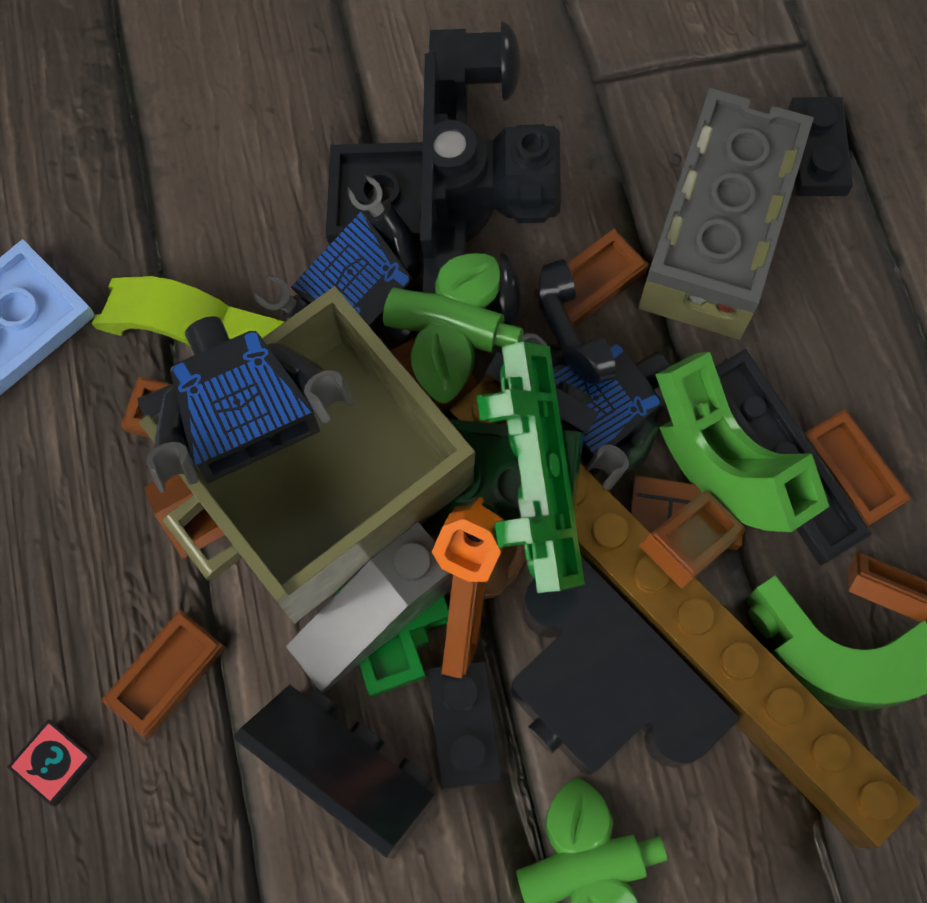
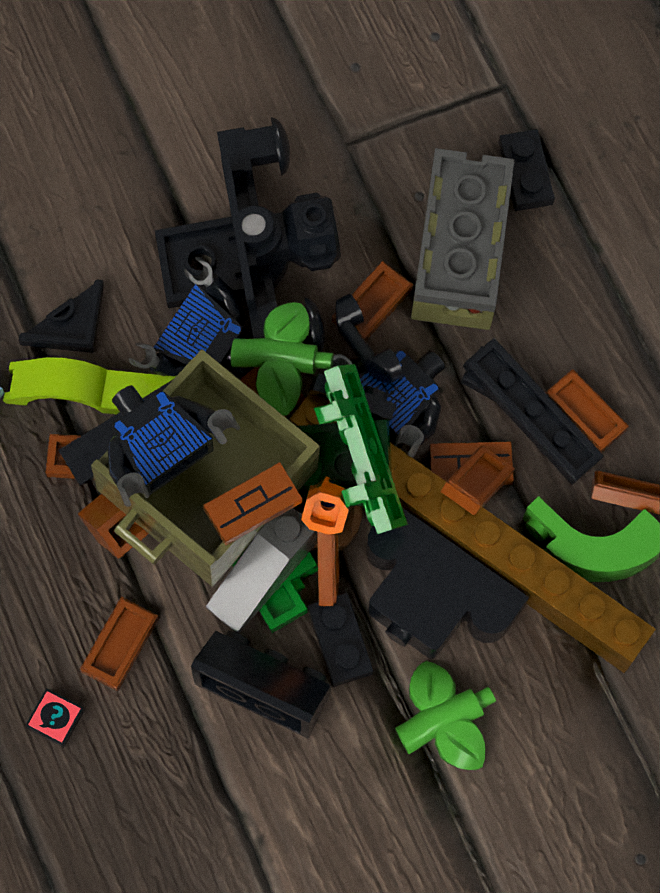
camera: 15 degrees left, 0 degrees up
(200, 244) = (70, 325): none -> black tile
(358, 519) = (252, 503): none -> dark orange tile
(719, 457) = (489, 421): bright green arch -> none

